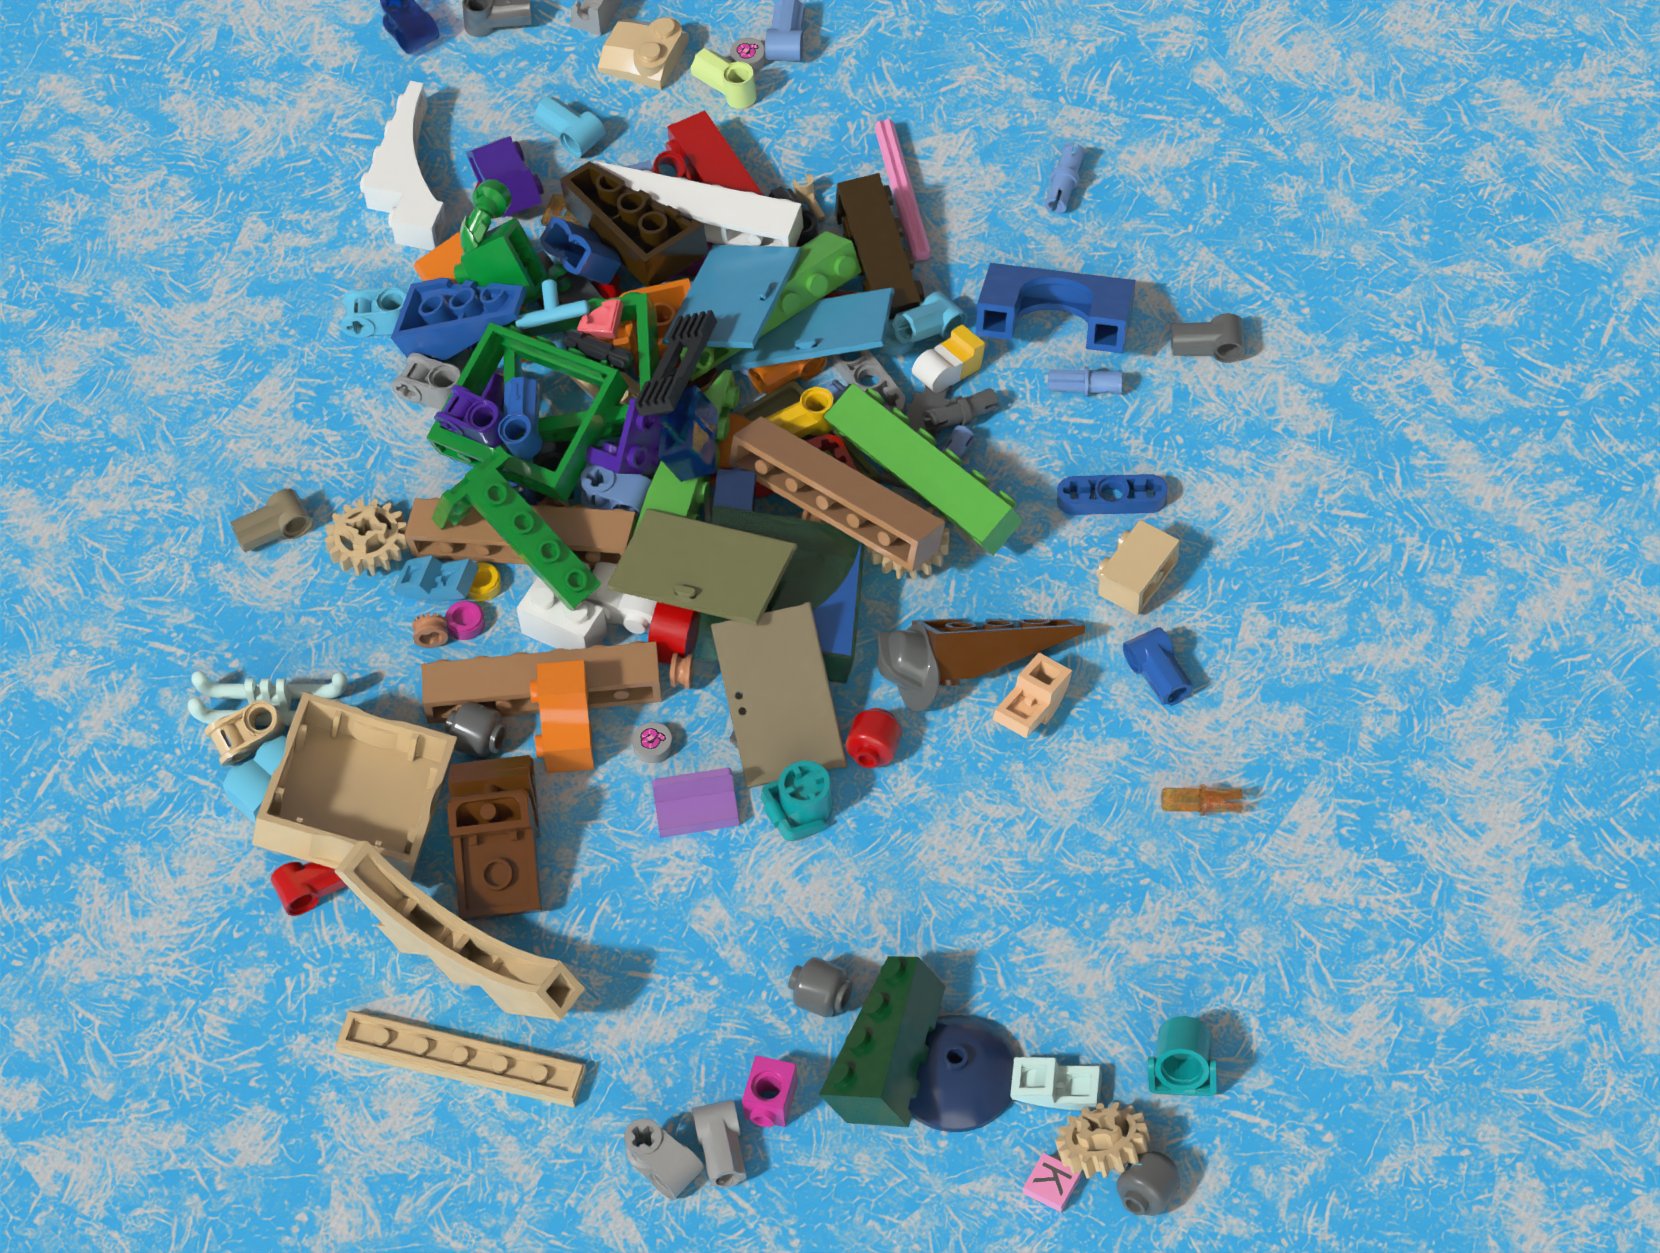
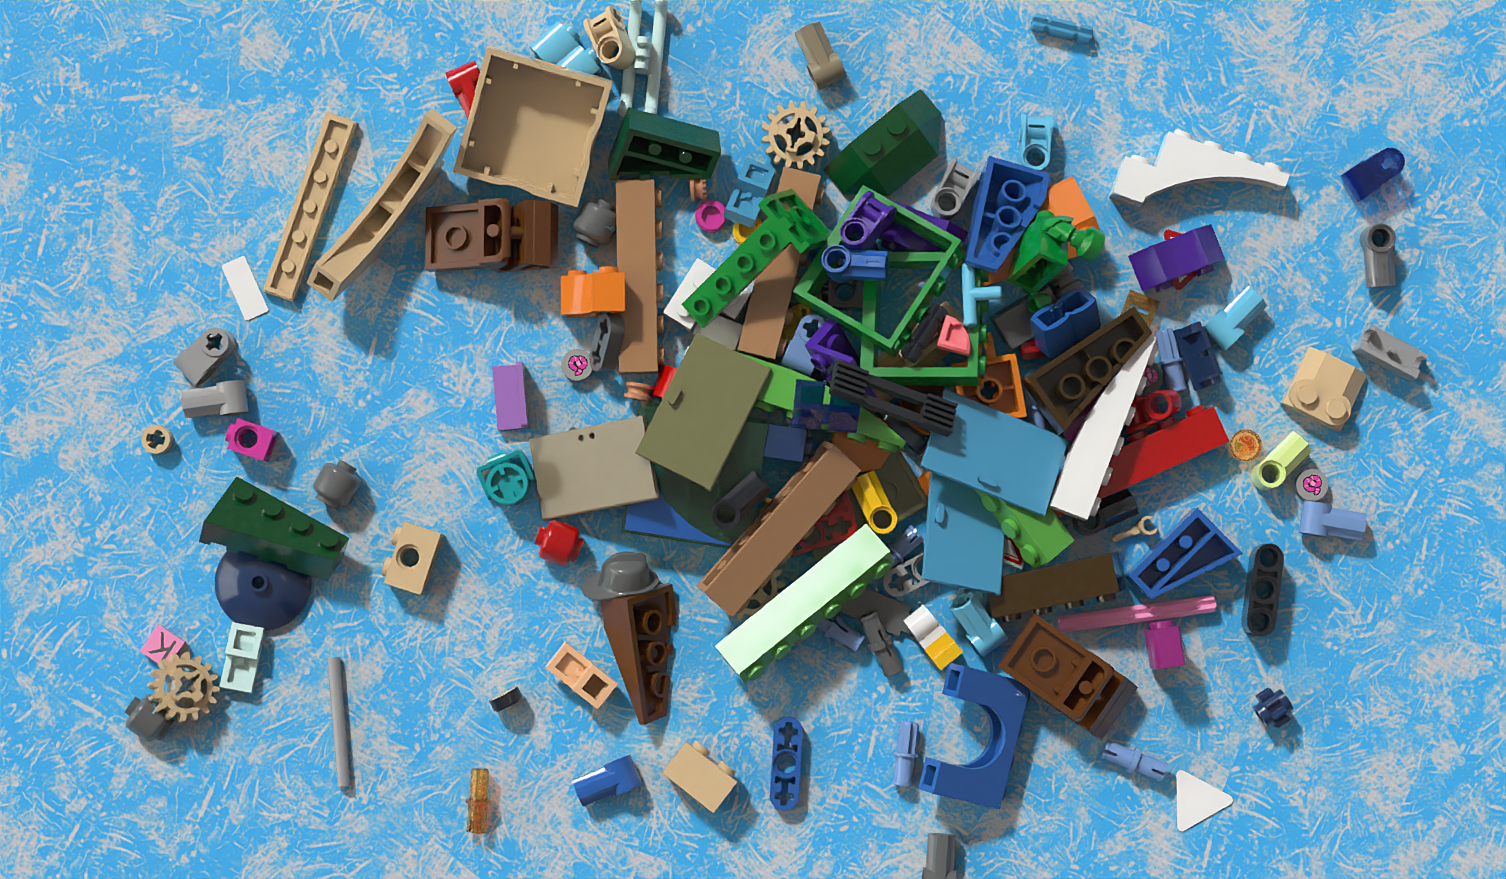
camera: 90 degrees right, 30 degrees up
(243, 302) = (1061, 28): none -> dark azure axle
(381, 659) = (662, 147): none -> dark green wedge
(384, 449) = (890, 149): none -> dark green wedge
(569, 1130) = (244, 288): none -> white sticker
(624, 696) = (607, 342): none -> dark grey beam
(625, 147) = (1193, 346): none -> dark blue hinge
(713, 106) = (1245, 445): none -> clear orange tile
(772, 1200) = (160, 449): none -> tan bush
(807, 526) = (742, 498): none -> black piece
(829, 141) = (1181, 555): none -> blue wedge
(865, 81) = (1272, 576): none -> black beam
(893, 877) = (427, 545): none -> tan brick
(934, 148) = (1164, 644): none -> magenta brick
(977, 226) = (1067, 676): none -> reddish brown piece
(991, 62) = (1273, 707): none -> dark blue gear
(1072, 779) = (506, 699): none -> black tile
(1101, 128) = (1197, 800): none -> white sticker
(1124, 967) = (338, 722): none -> light grey bar
(1183, 1059) = (246, 757): teal piece -> none

